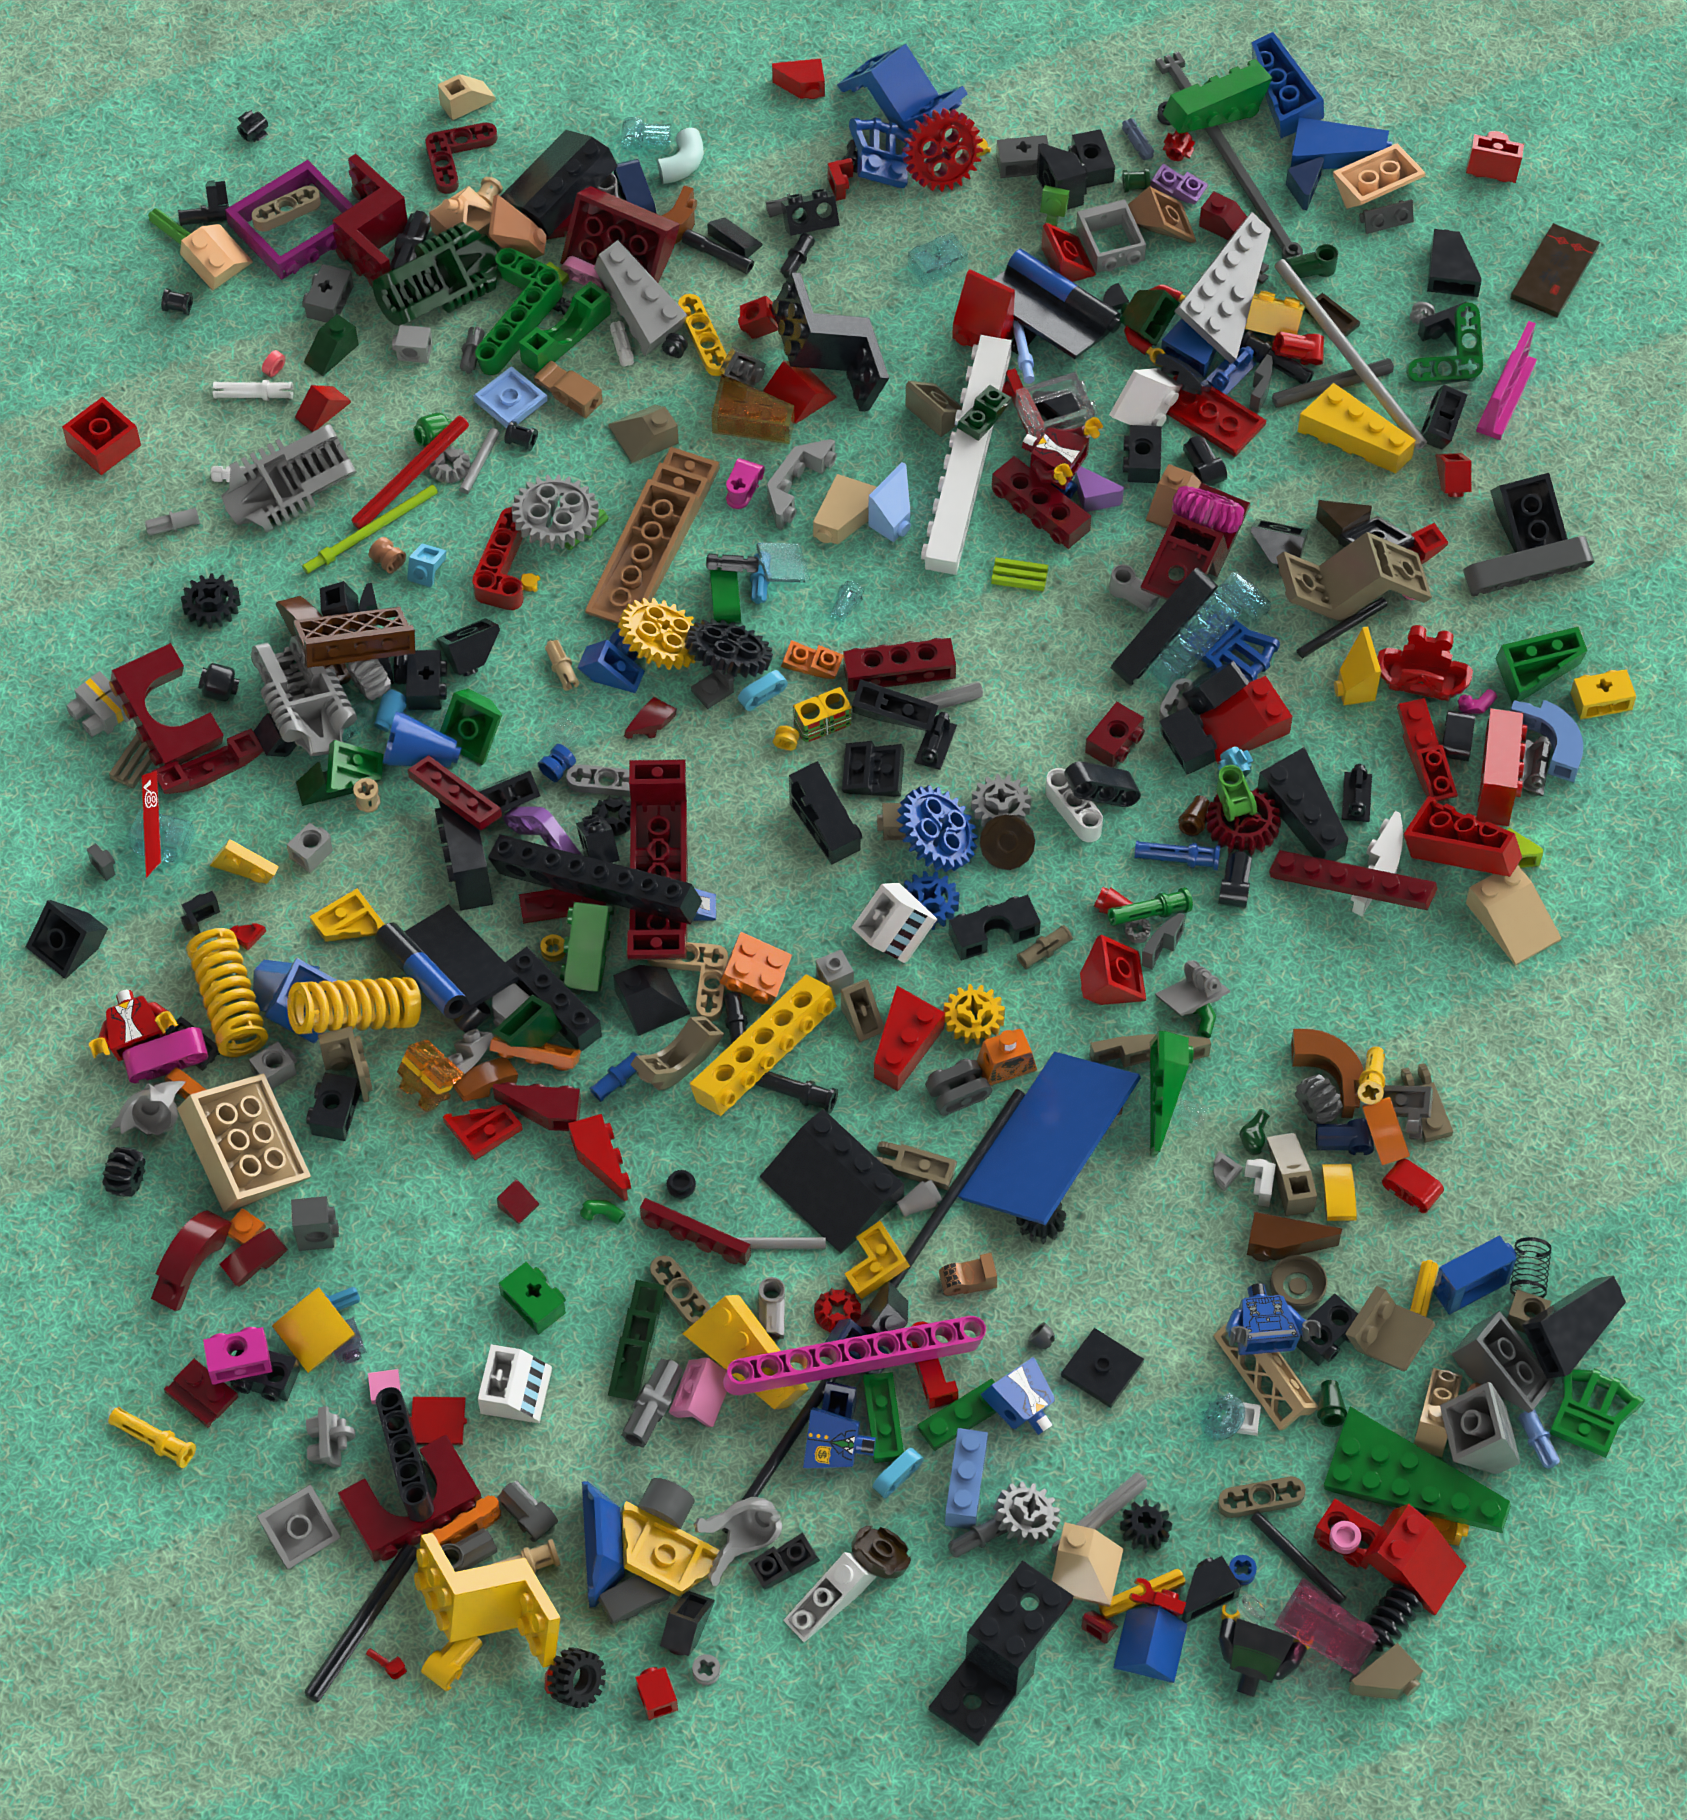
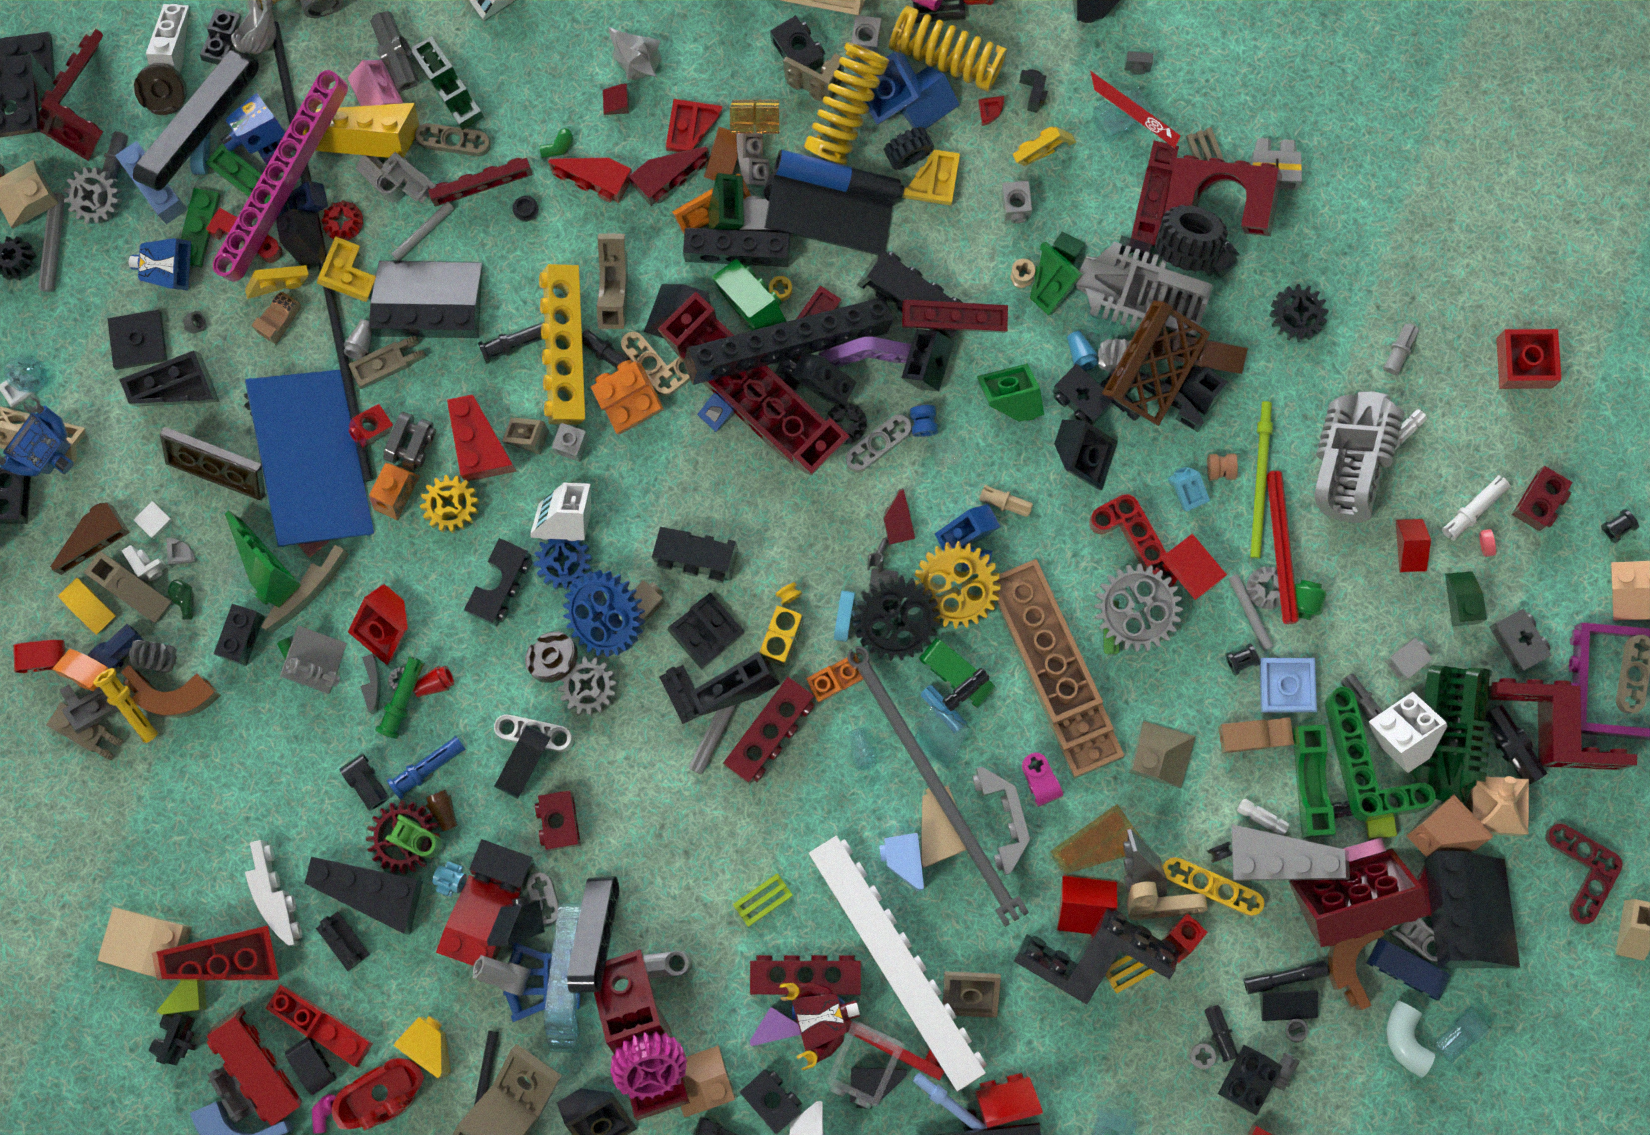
camera: 140 degrees right, 20 degrees up
(204, 356) = (1538, 496): none -> dark red brick
(245, 686) = (1191, 238): none -> black tyre
(343, 948) = (908, 148): none -> black bush
(414, 740) = (1027, 339): blue cone -> none
(464, 1213) = (635, 54): none -> light grey hair
(468, 297) = (1408, 731): none -> white slope
(486, 503) = (1194, 567): none -> red slope
(488, 193) = (1515, 853): tan bush -> none
(529, 582) = (1102, 547): yellow piece -> none
(539, 1311) = (528, 38): green brick -> none
(616, 1077) = (641, 239): blue pin -> none
(695, 705) = (877, 557): none -> dark grey hand
(749, 214) = (1293, 1025): none -> dark grey hinge
(752, 1279) = (398, 170): none -> light grey hinge
(754, 341) = (1145, 903): none -> tan beam
(824, 261) = (1209, 1061): none -> light grey bush
(853, 418) = (937, 788): none -> dark grey hinge
(877, 1481) = (195, 120): none -> beam
(938, 1297) = (275, 279): none -> yellow wing
(957, 1619) = (60, 121): none -> dark red bracket
(977, 1119) = (375, 416): none -> red brick
(985, 412) = (910, 999): dark green slope -> none
(1043, 948) = (452, 603): dark tan pin -> none
(1107, 1294) = (171, 383): none -> black wedge
(1133, 1196) = (212, 463): none -> dark brown tile
(1223, 1213) = (153, 520): none -> white tile
(1234, 1059) = (239, 634): none -> black brick
(1257, 660) = (507, 976): none -> light grey piece
(1303, 1265) = (46, 502): dark tan piece -> none
(1353, 880) = (272, 853): dark red plate -> none
(1559, 830) = (176, 1041): none -> black hips

